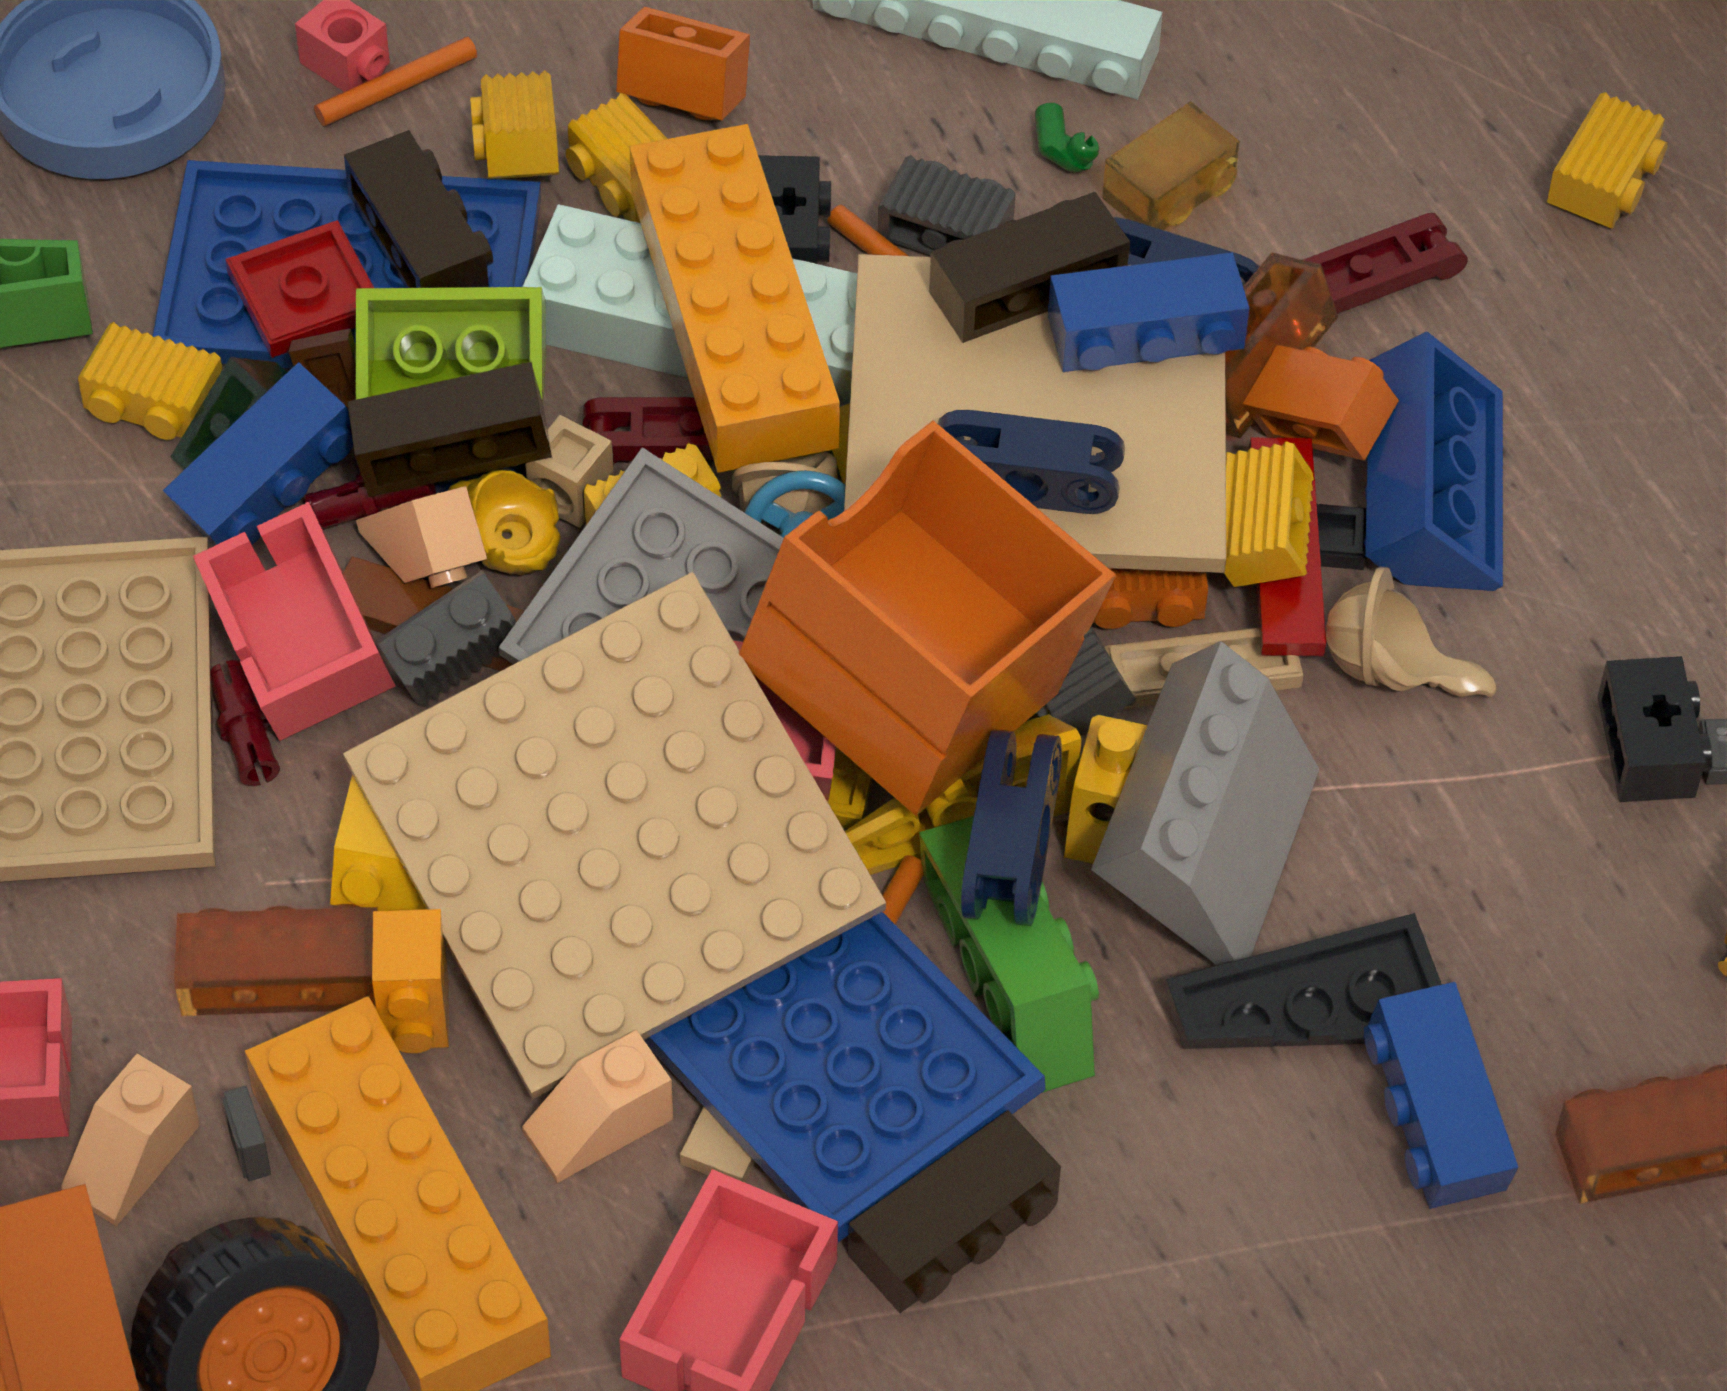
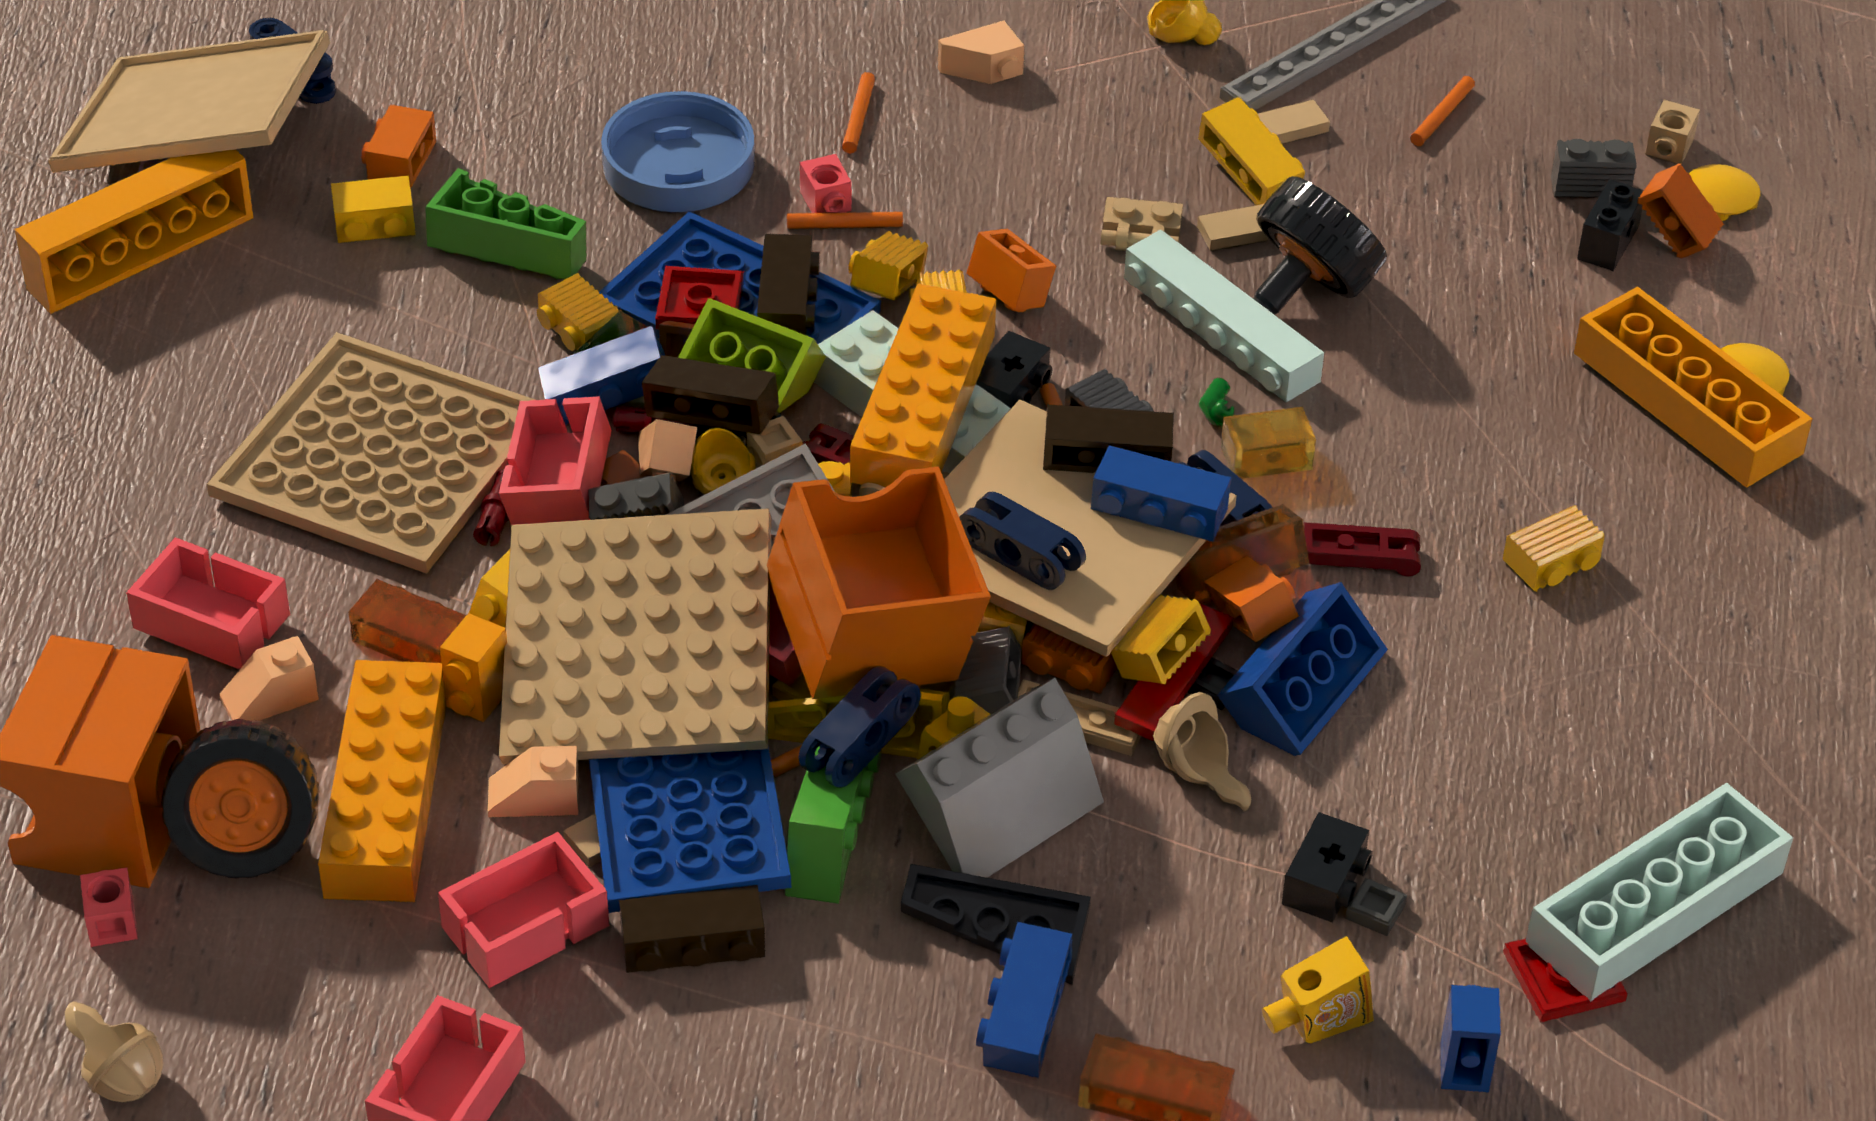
camera: 30 degrees right, 10 degrees down
(246, 1133) = (332, 709): dark grey tile -> none

